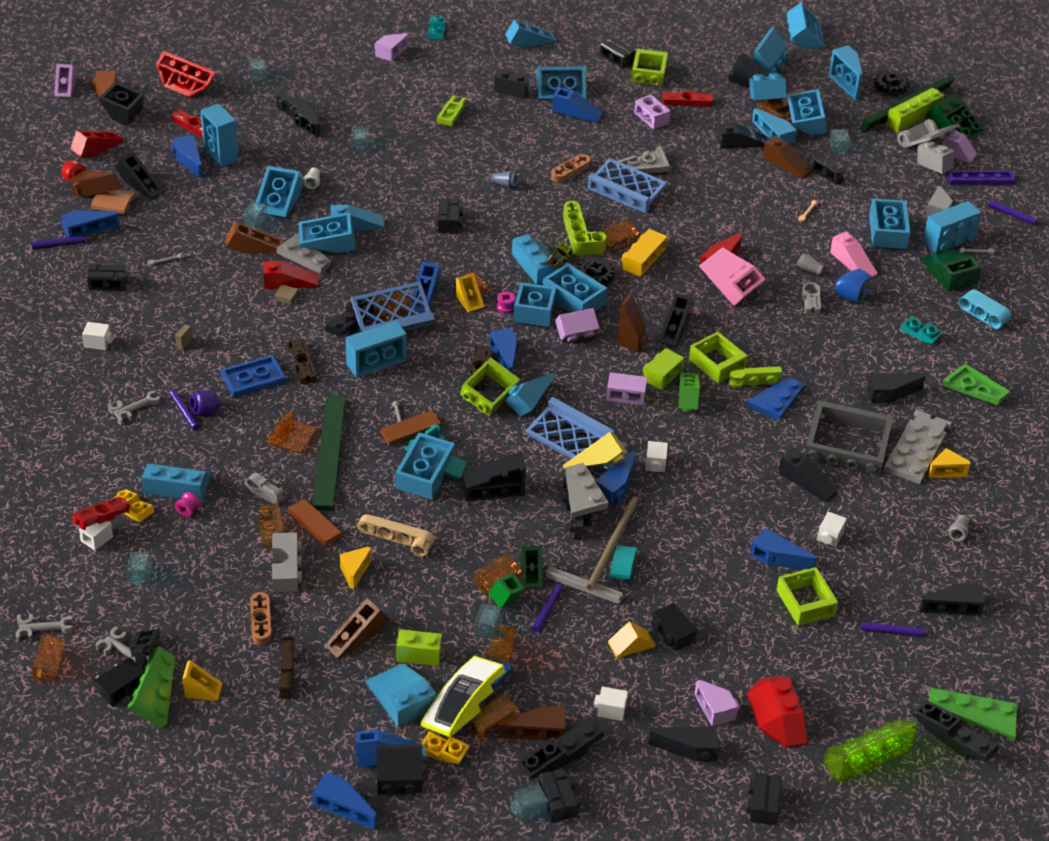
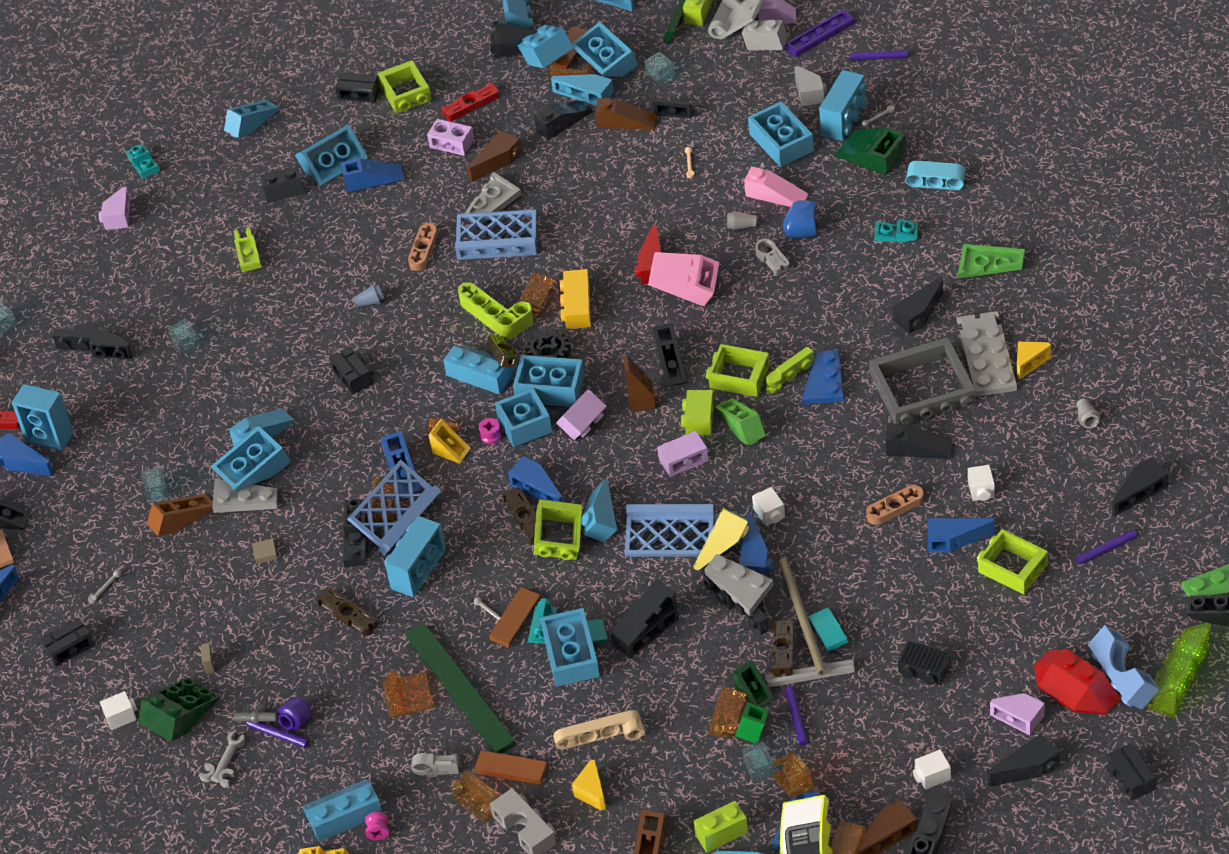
camera: 25 degrees left, 5 degrees up
(134, 355) = (176, 708): none -> dark green slope
(183, 391) = (256, 716): none -> dark grey piece
(253, 376) = (312, 657): blue tile -> none
(280, 190) = (156, 443): dark azure slope -> none
(281, 273) = (242, 532): red slope -> none
(312, 178) = (174, 409): white cone -> none
(571, 563) = (783, 659): none -> dark brown piece
(630, 640) = (896, 701): yellow slope -> none
(672, 137) = (497, 154): none -> reddish brown slope
(759, 504) = (899, 497): none -> nougat beam
(824, 701) = (1110, 651): none -> medium blue arch

